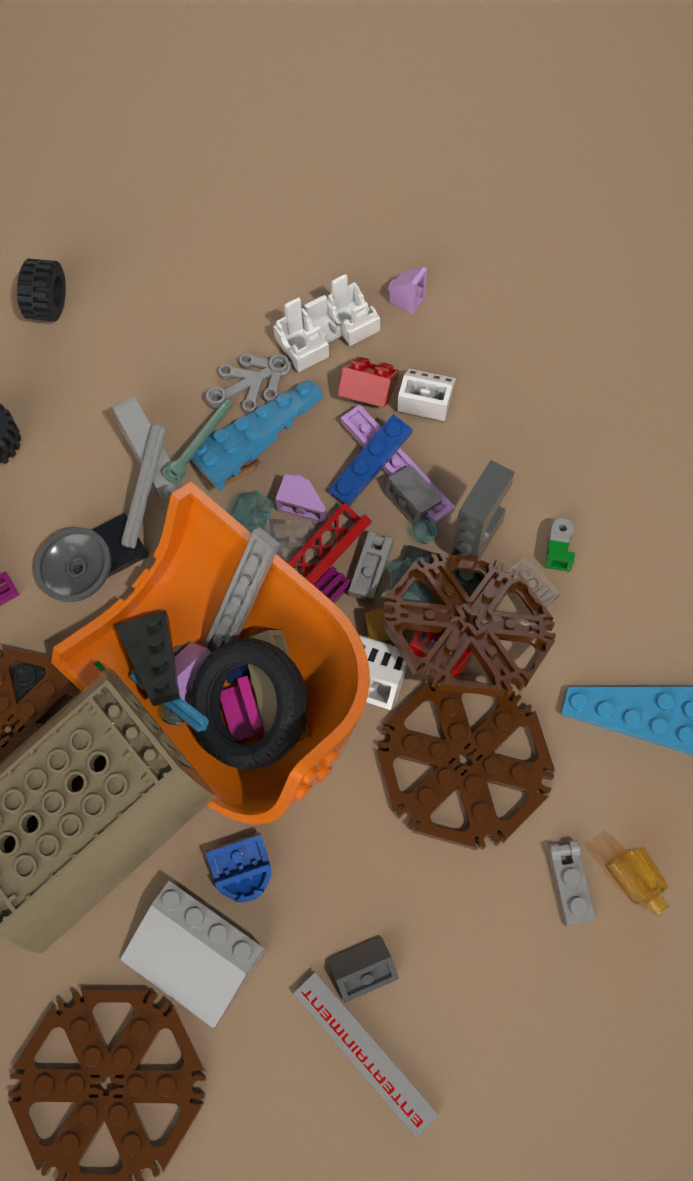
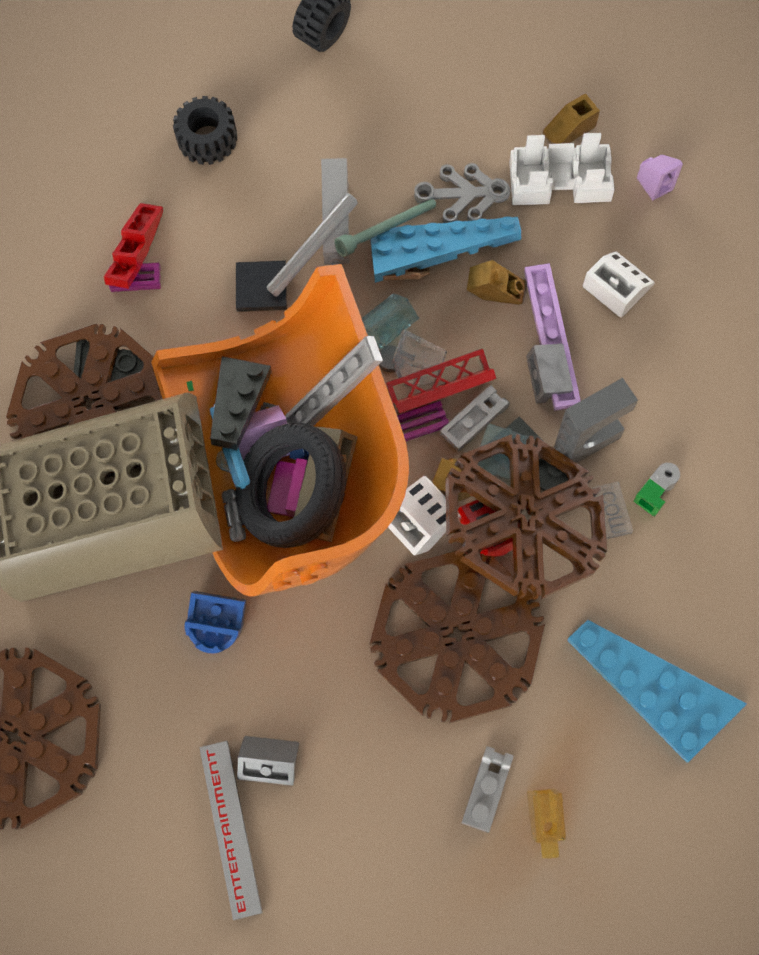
camera: 30 degrees right, 5 degrees up
(64, 555) = (208, 276): dark grey dish -> none
(192, 954) = (137, 670): light grey slope -> none
(207, 761) = (233, 518): none -> dark grey axle
(300, 499) = (444, 324): lavender slope -> none
(311, 278) = (572, 121): none -> pearl gold slope
(323, 443) = (495, 283): none -> pearl gold slope
(368, 381) = (570, 245): slope -> none
(371, 460) = (529, 321): blue plate -> none
(425, 531) = (541, 411): clear light blue plate -> none

